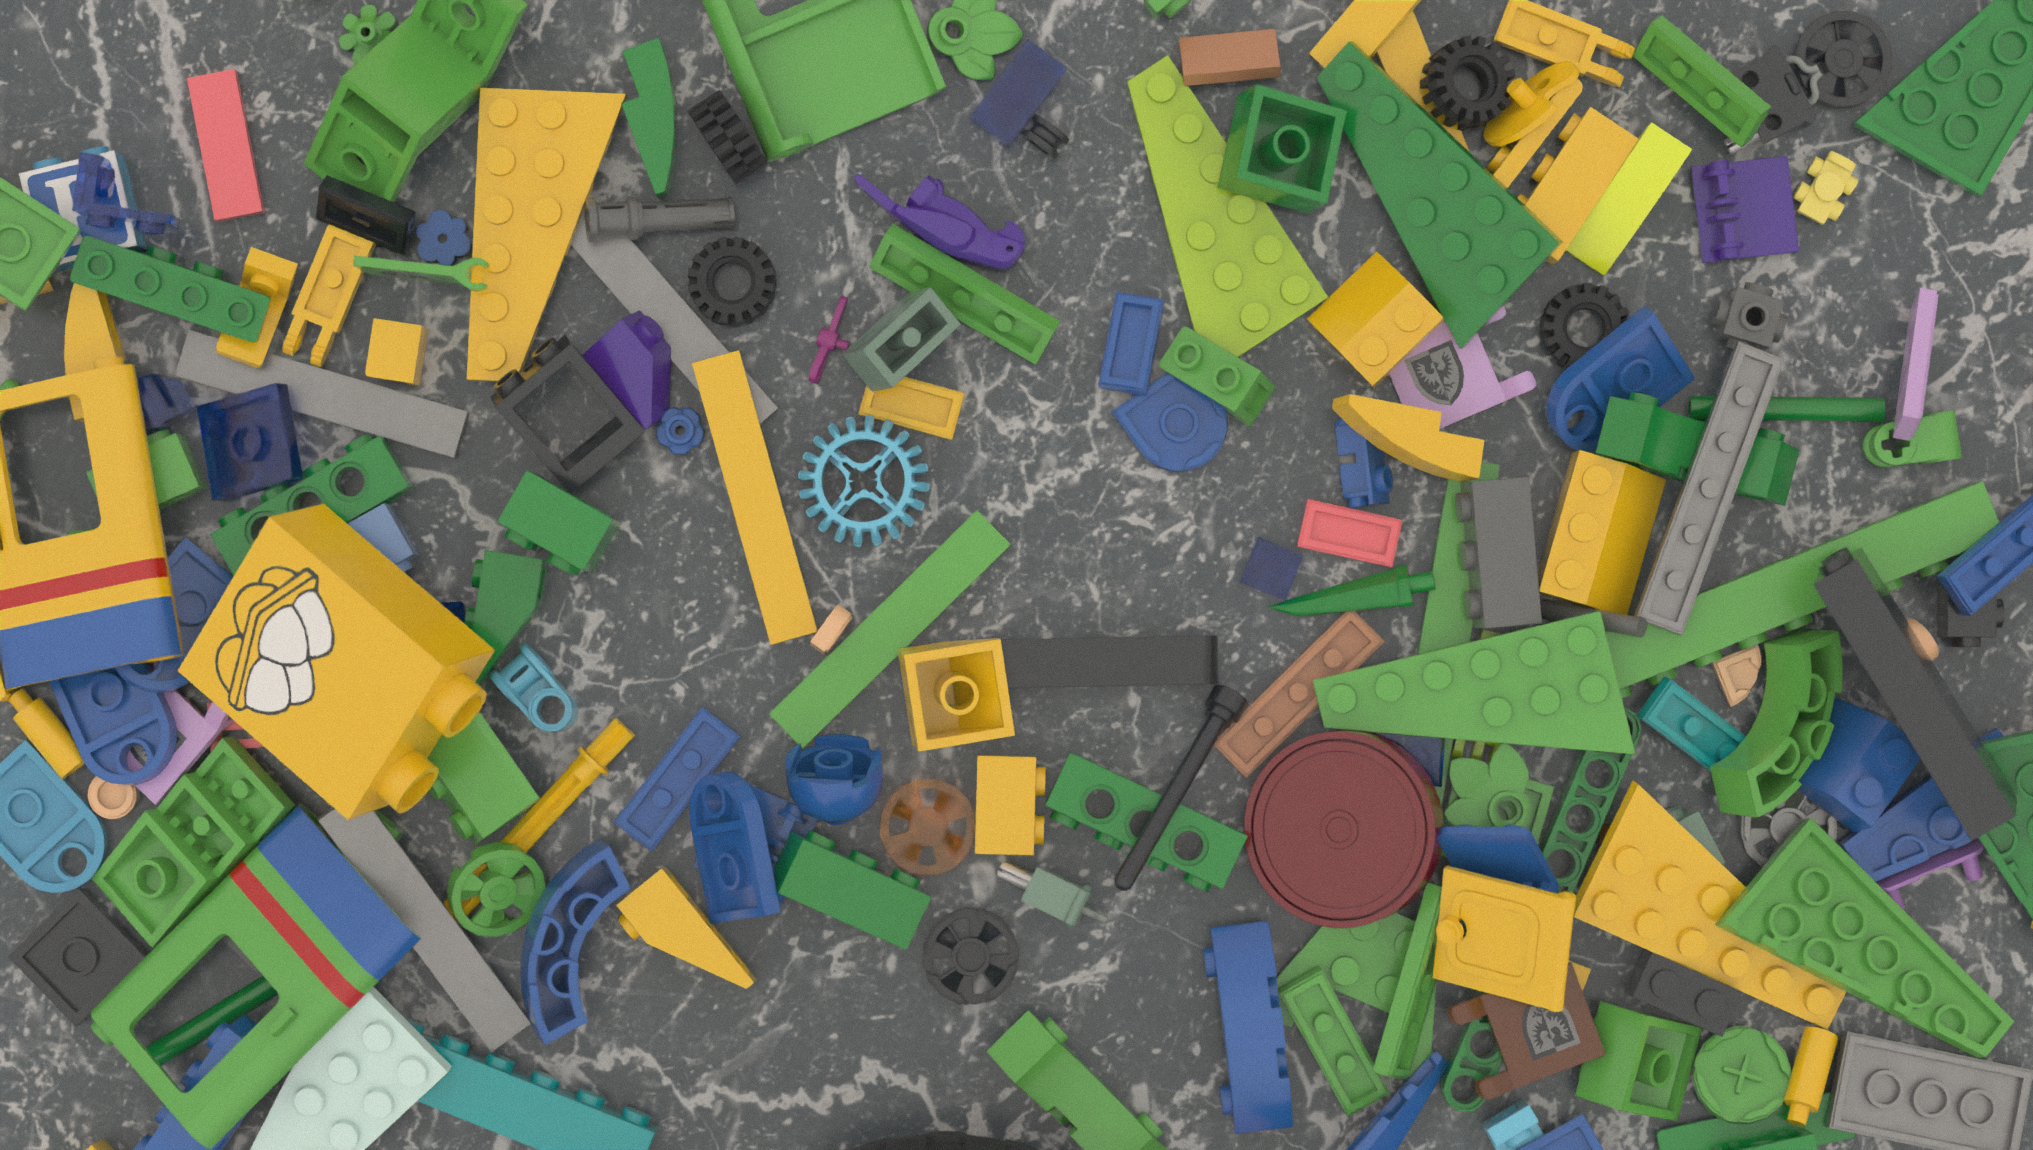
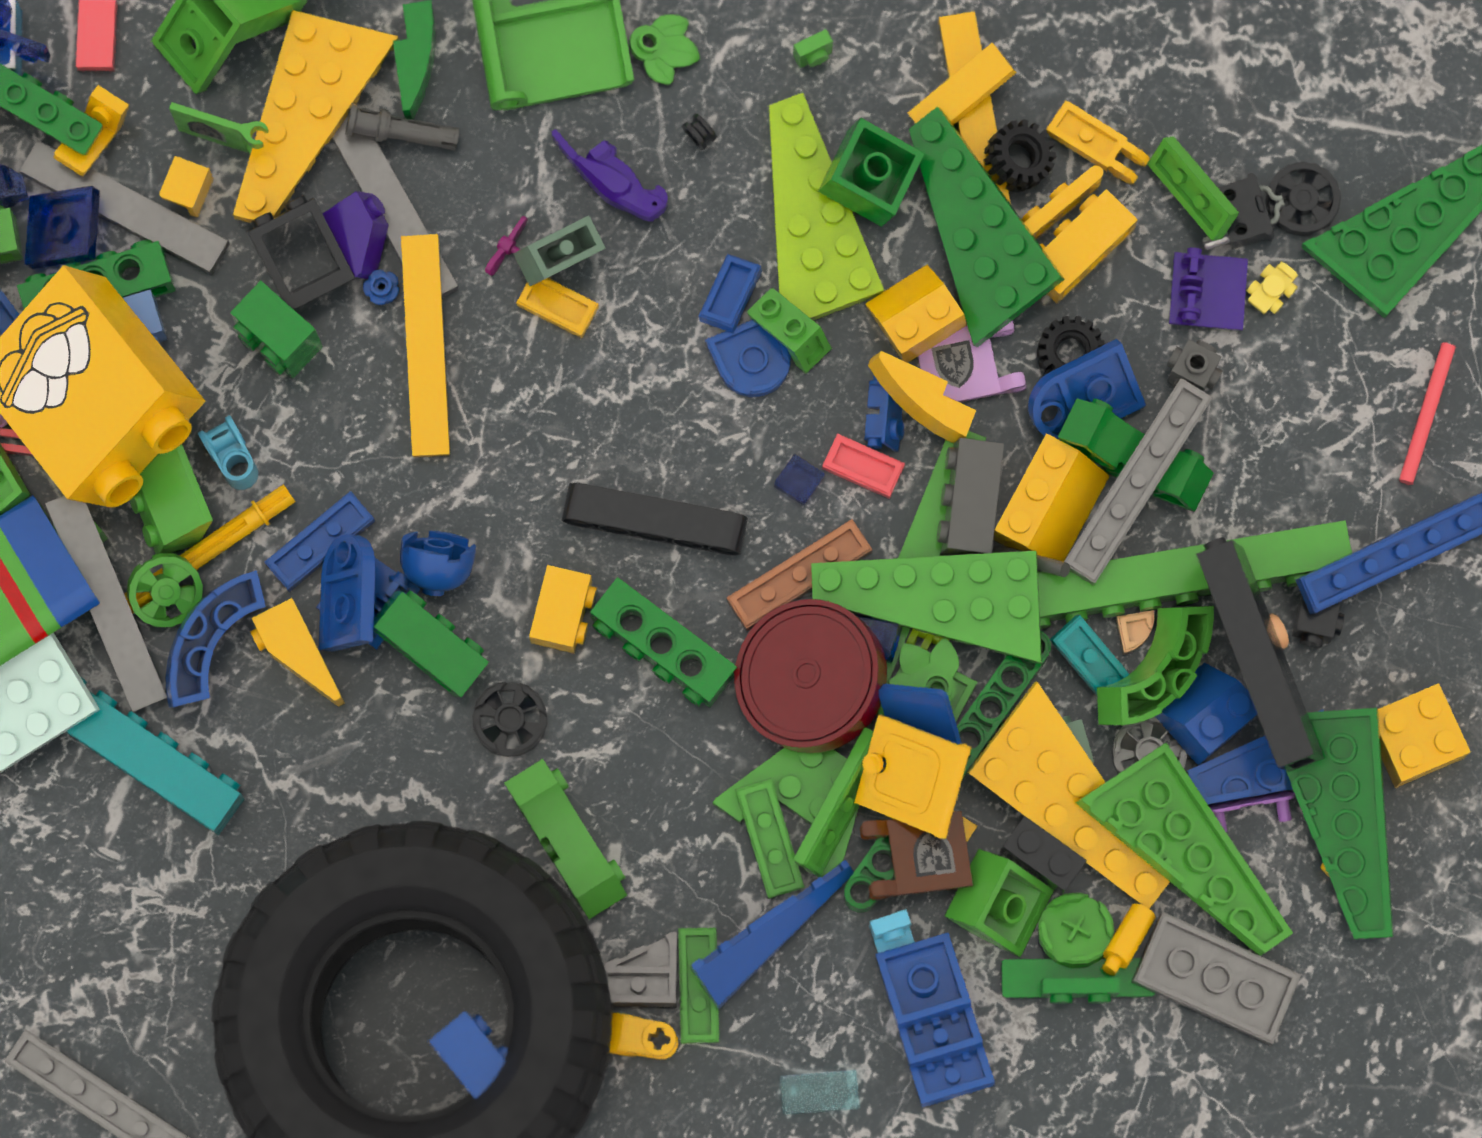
camera: 15 degrees right, 10 degrees down
(327, 291) = (144, 136): yellow hinge -> none
(365, 215) = (188, 80): black tile -> none
(441, 224) = (240, 105): blue plant -> none
(506, 601) = (223, 384): green slope -> none
(715, 256) = (438, 167): black tyre -> none
(727, 136) = (465, 81): black tyre -> none
(831, 630) = (459, 454): light nougat tile -> none
(832, 453) = (498, 360): medium azure gear -> none
(889, 628) = (504, 464): bright green tile -> none
(927, 826) = (498, 615): clear orange piece -> none
(955, 693) = (542, 515): yellow slope -> none
(965, 293) = (618, 233): bright green plate -> none
(1018, 93) = (686, 97): clear blue plate -> none
(1052, 893) = (581, 679): sand green piece -> none
(1223, 709) = (740, 573): black piece -> none
(1229, 57) = (847, 103): nougat tile -> none
(1251, 1027) = (708, 810): blue brick -> none
(1375, 591) = (877, 510): green bar -> none
(1529, 103) = (1061, 178): yellow piece -> none
(1628, 199) = (1121, 263): neon yellow slope -> none
(1805, 408) = (1227, 446): green piece -> none
(1915, 364) = (1311, 424): lavender tile -> none
(1933, 442) = (1308, 484): bright green piece -> none

